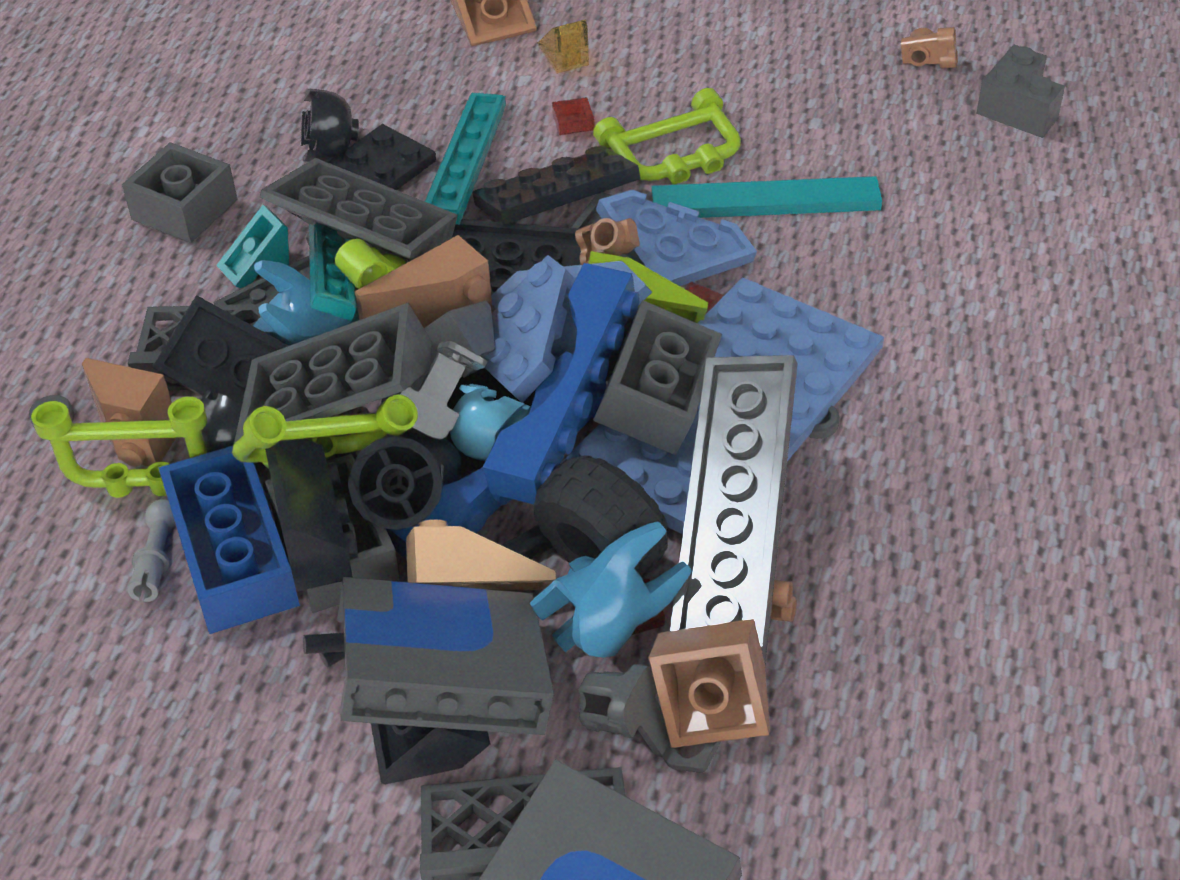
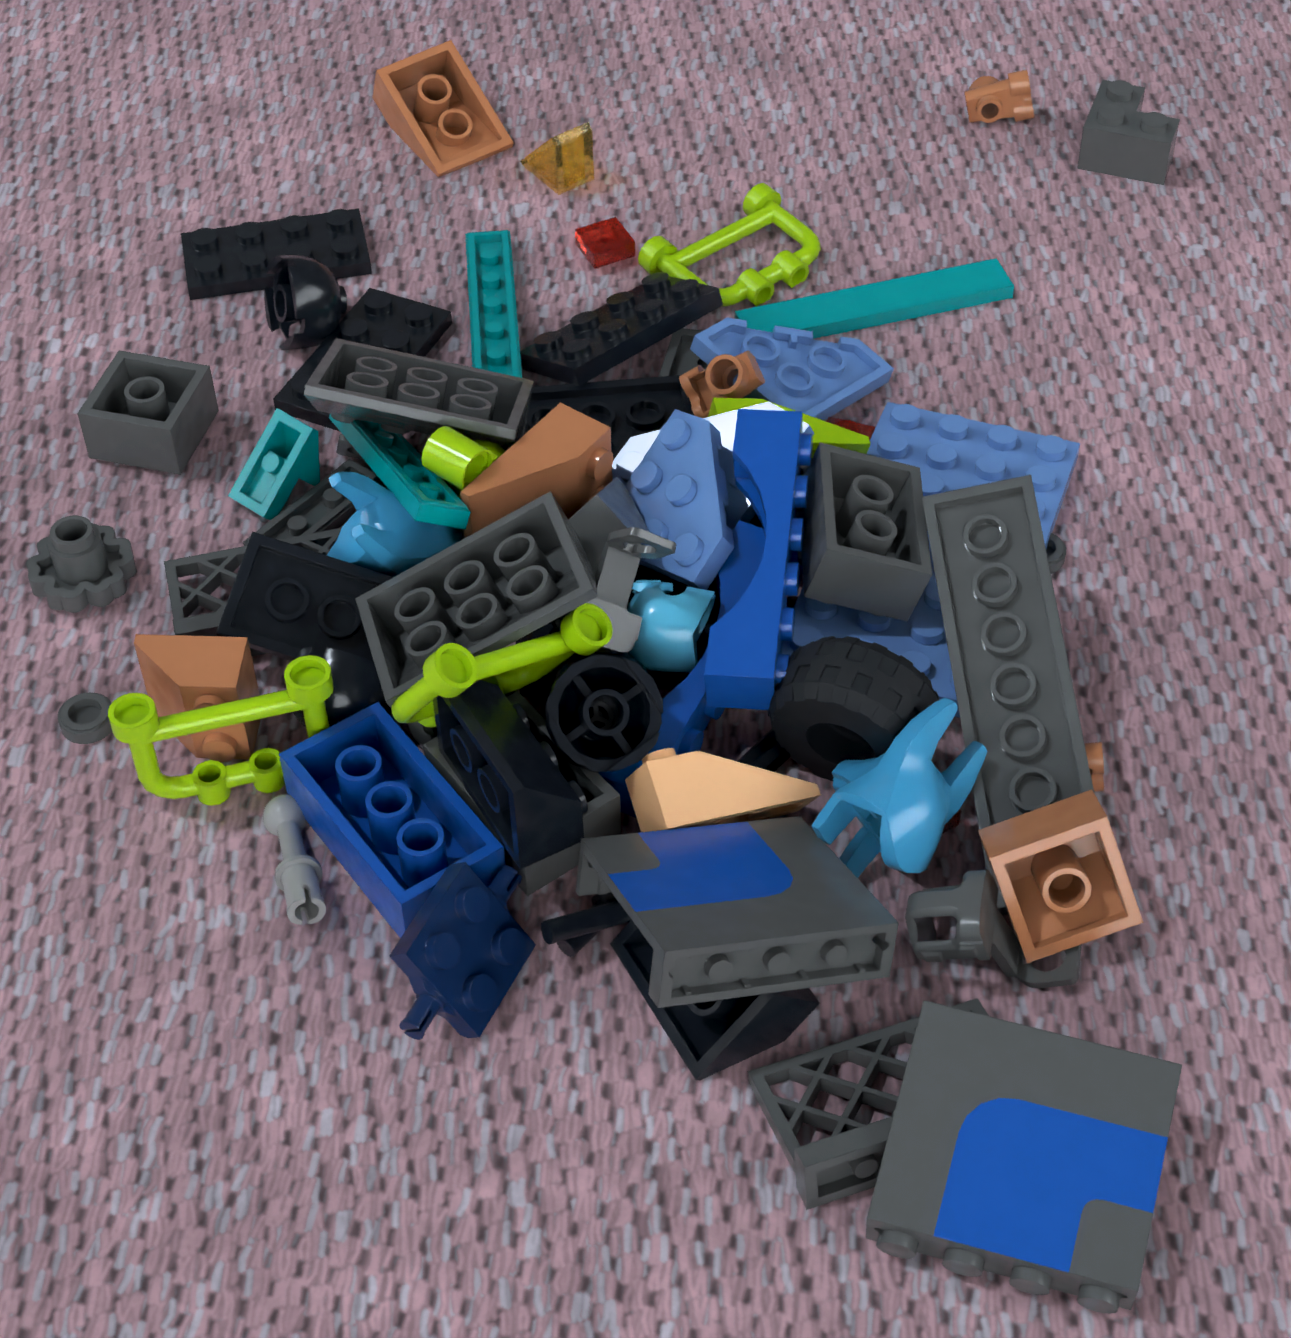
camera: 15 degrees left, 0 degrees up
(90, 298) = (80, 565): none -> dark grey plant
(236, 645) = (462, 951): none -> dark blue plate
(363, 84) = (238, 256): none -> black plate

